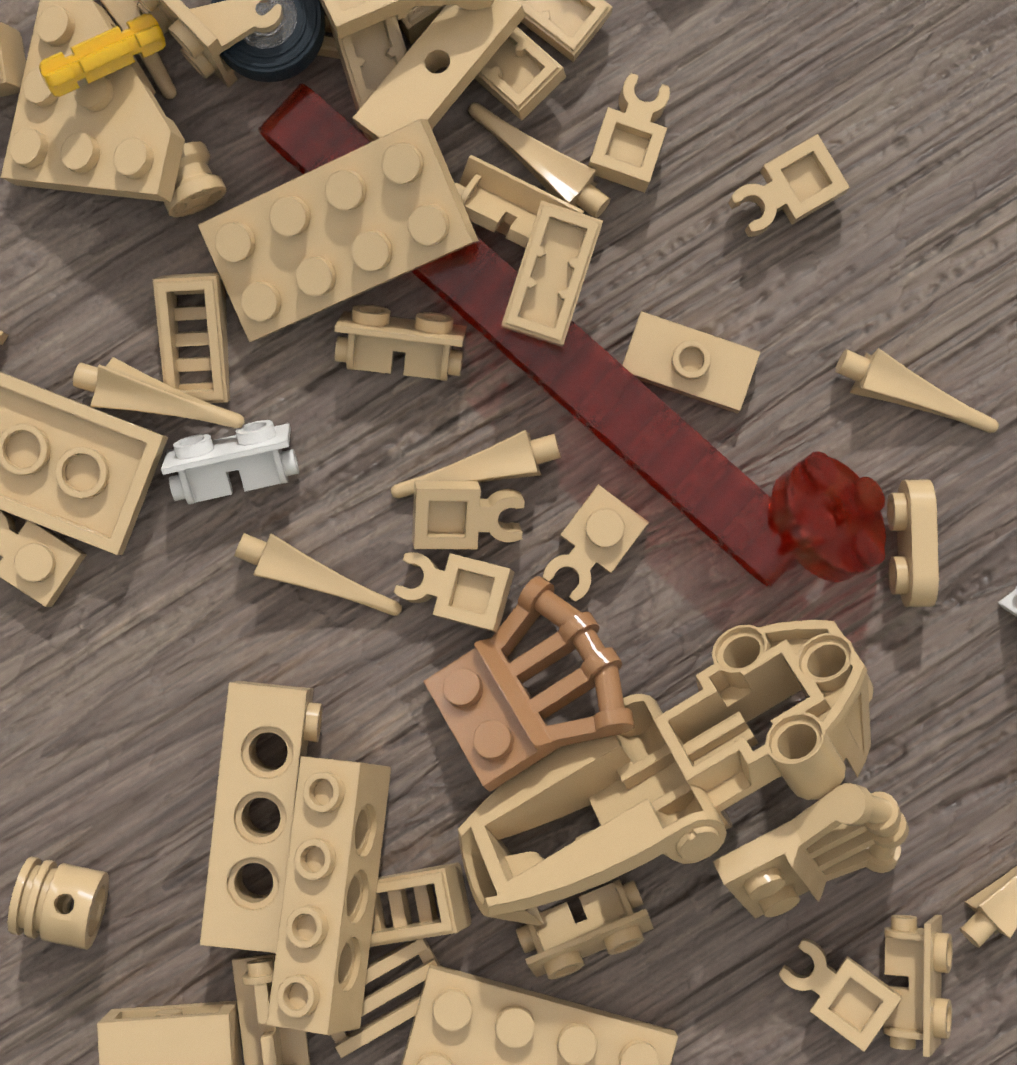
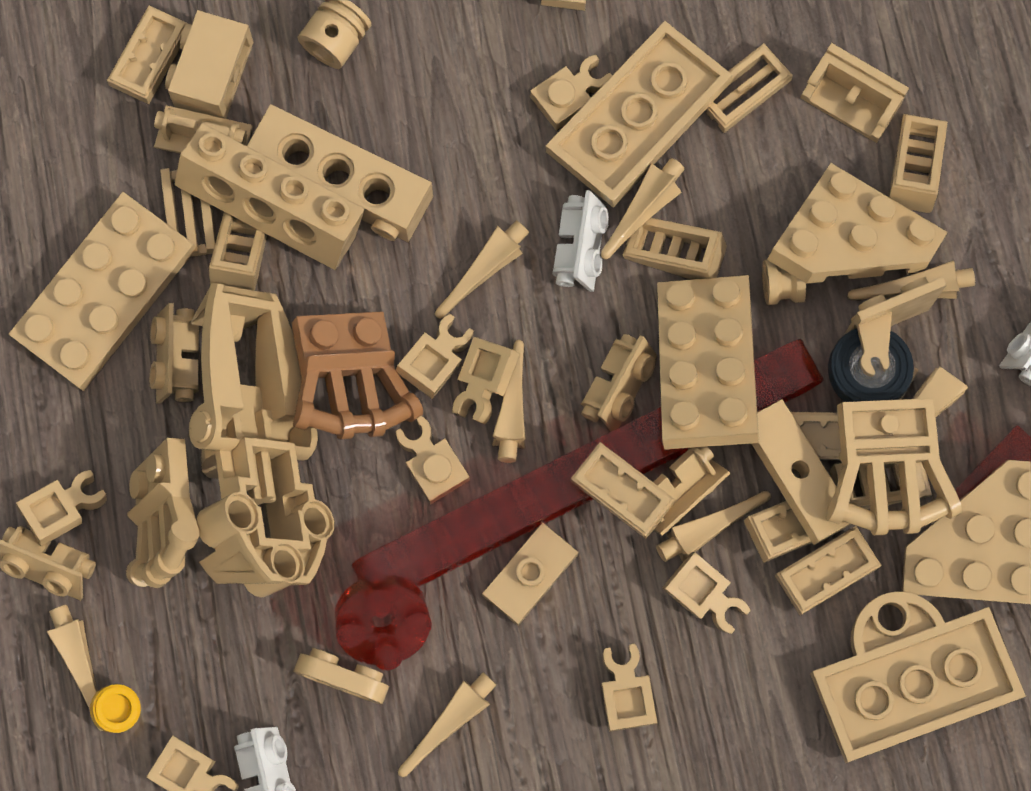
camera: 110 degrees right, 10 degrees down
(102, 55) = (882, 248): yellow axle -> none

